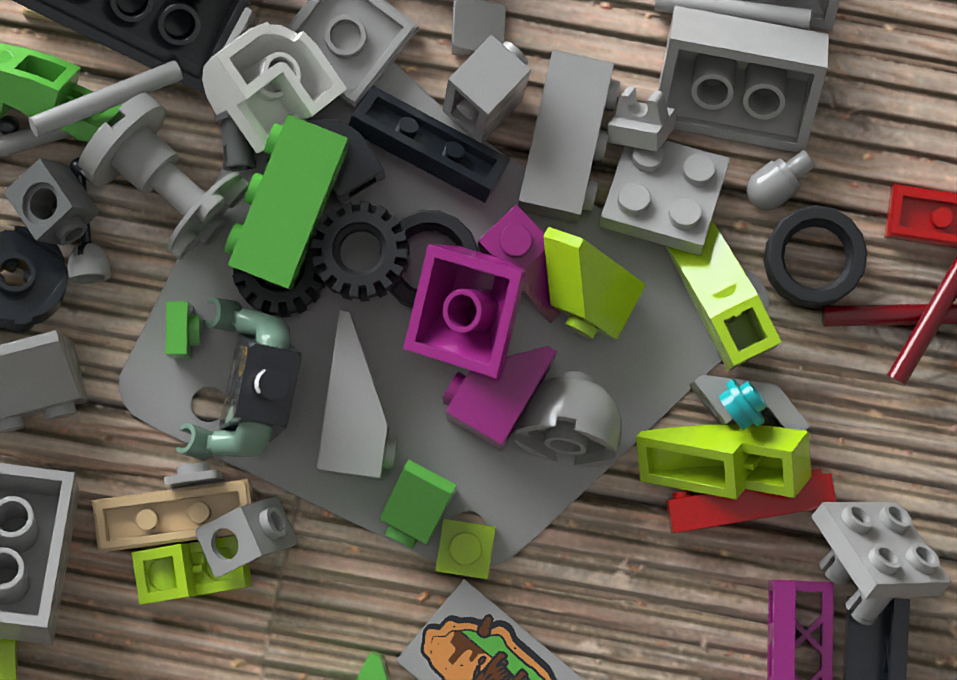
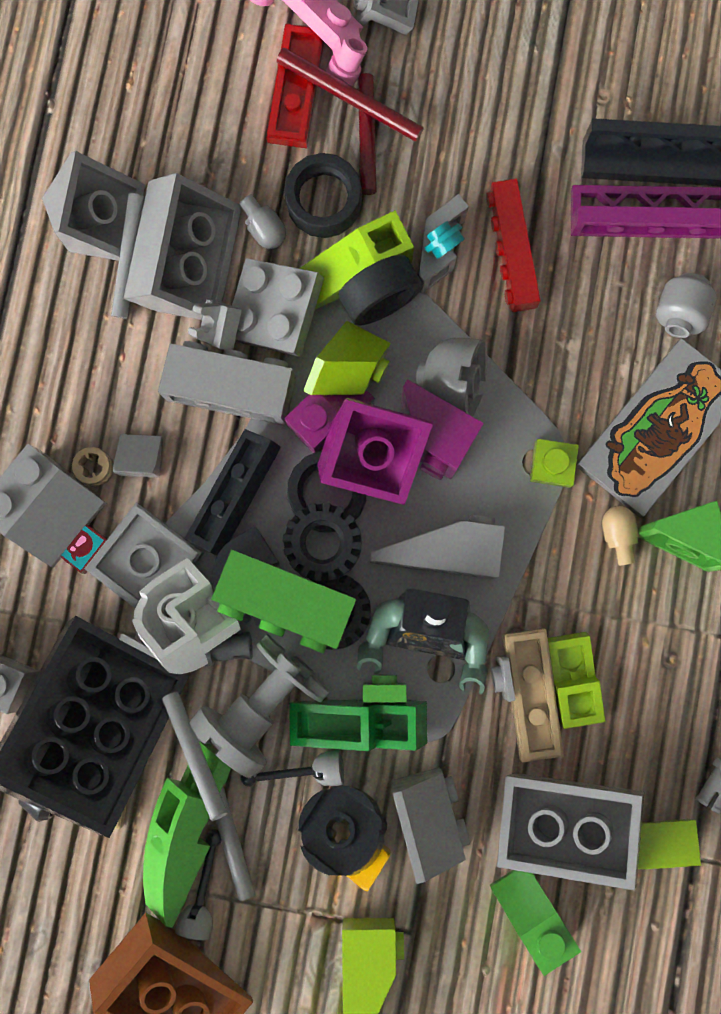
camera: 85 degrees left, 0 degrees up
(34, 197) = (278, 815): dark grey brick -> none
(138, 300) = (358, 724): none -> green slope
(260, 531) = (544, 625): light grey bracket -> none
(374, 631) = (621, 533): none -> tan cylinder
(417, 505) = (524, 496): bright green slope -> none
(487, 88) = (188, 442): light grey brick -> none
(682, 325) = (380, 290): none -> black tyre
(726, 459) = (484, 260): lime slope -> none
(880, 553) = (555, 140): light grey plate -> none

